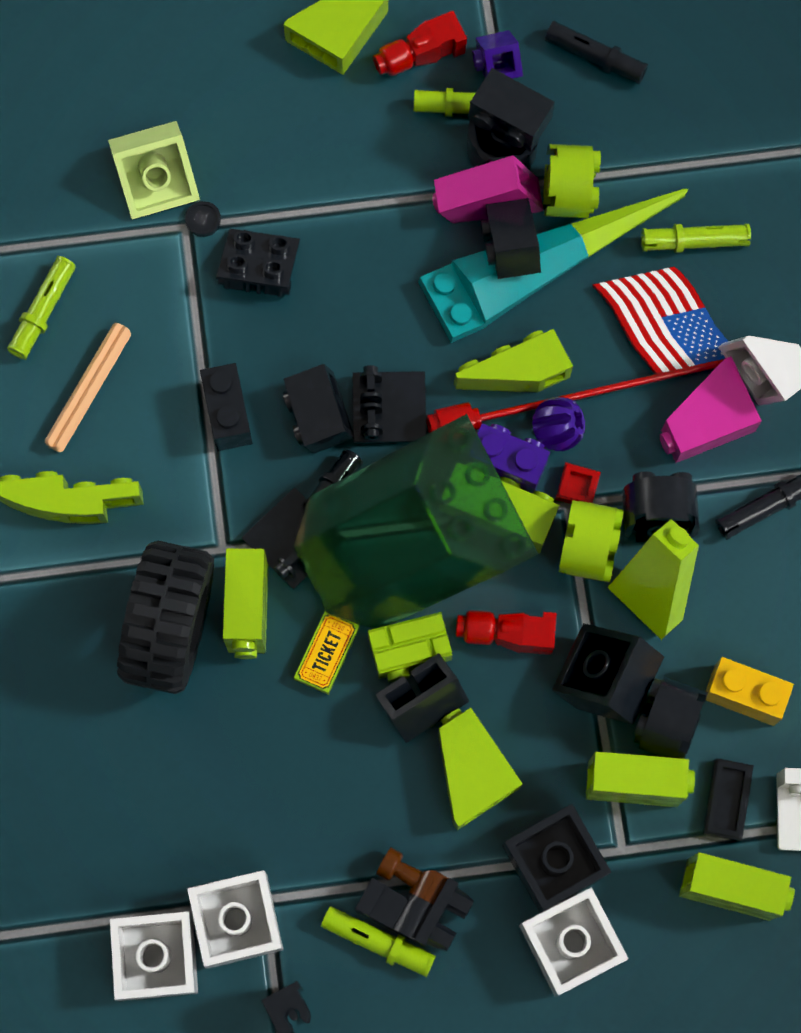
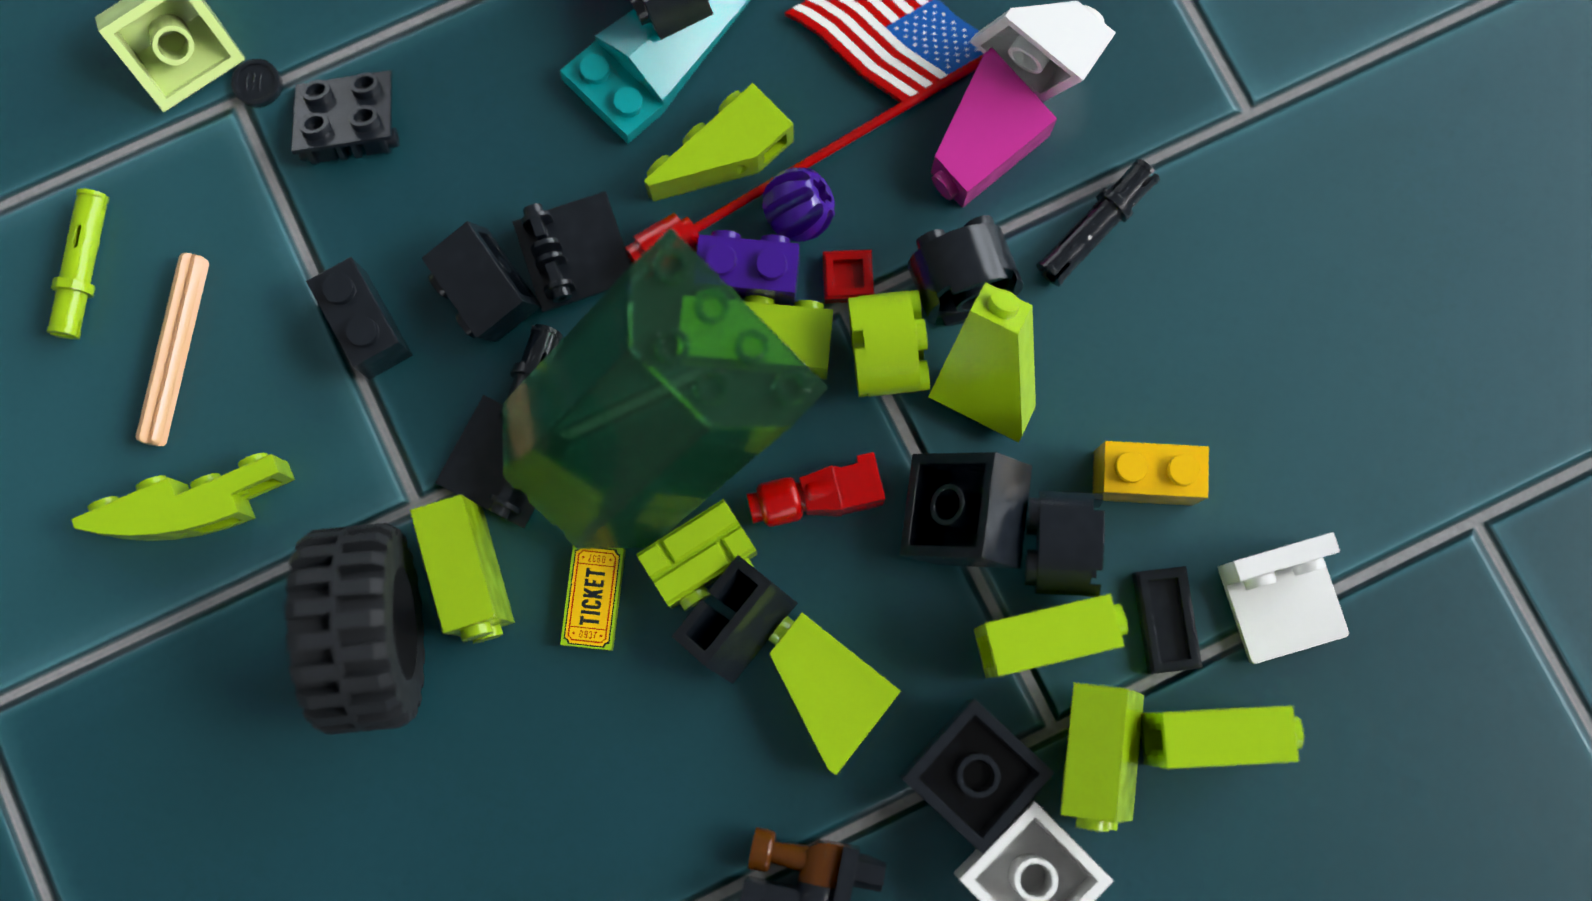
camera: 15 degrees left, 5 degrees up
(650, 872) = (1102, 756): none -> lime brick

